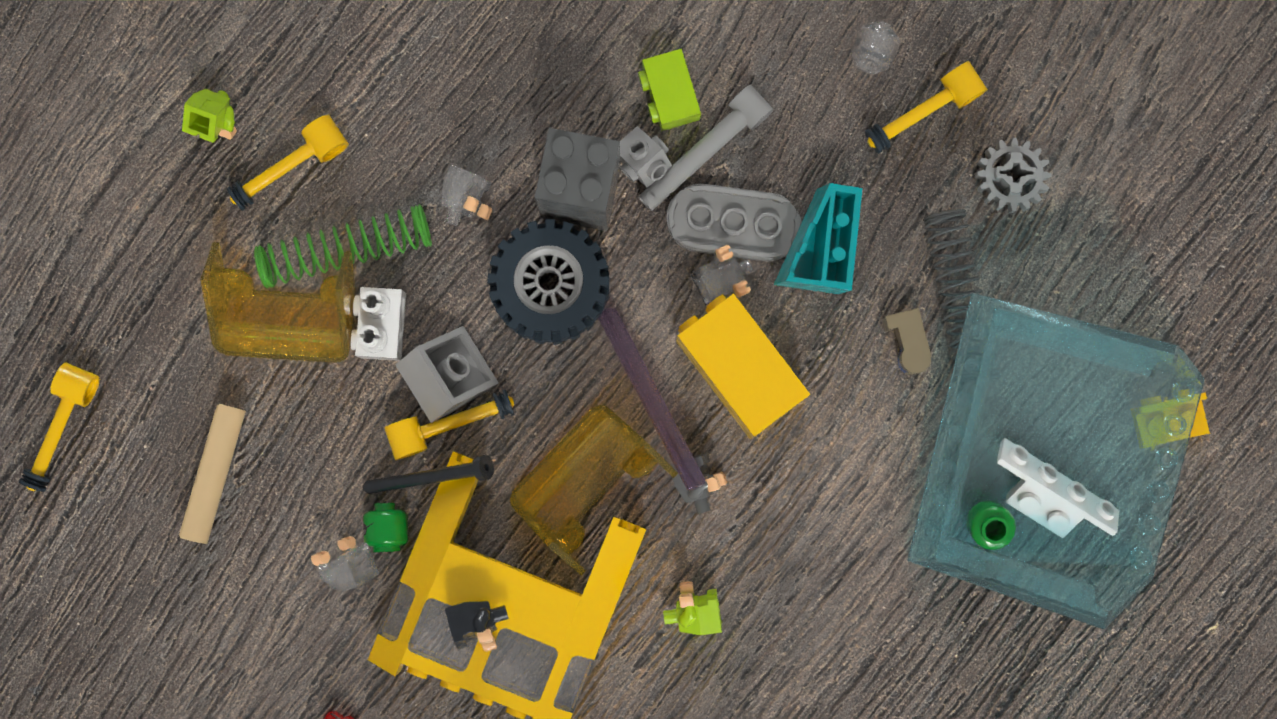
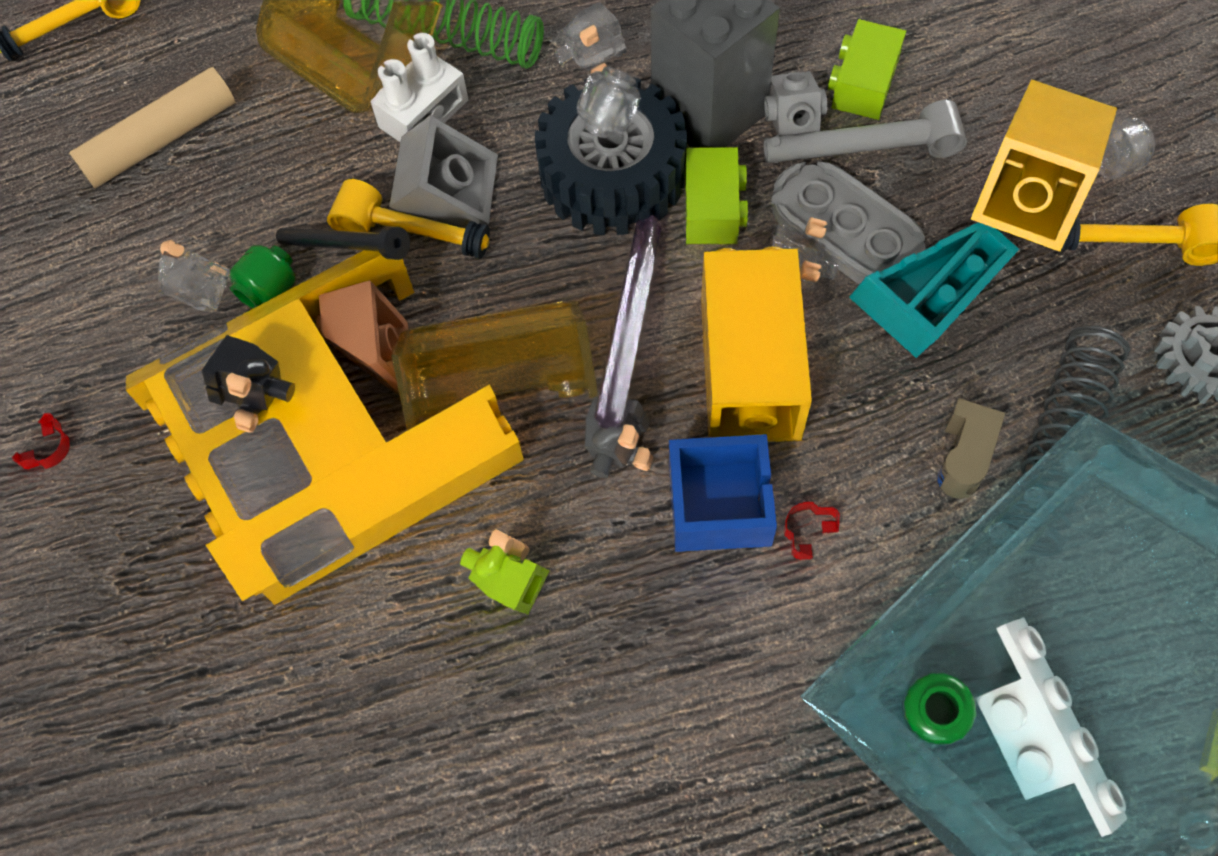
camera: 40 degrees right, 20 degrees down
(498, 529) = (362, 328): none -> nougat slope
(537, 265) = (608, 102): none -> clear head
(636, 265) = (713, 195): none -> lime brick
(785, 478) = (717, 493): none -> blue piece
(844, 116) = (1045, 165): none -> yellow brick
(852, 467) = (827, 527): none -> red piece

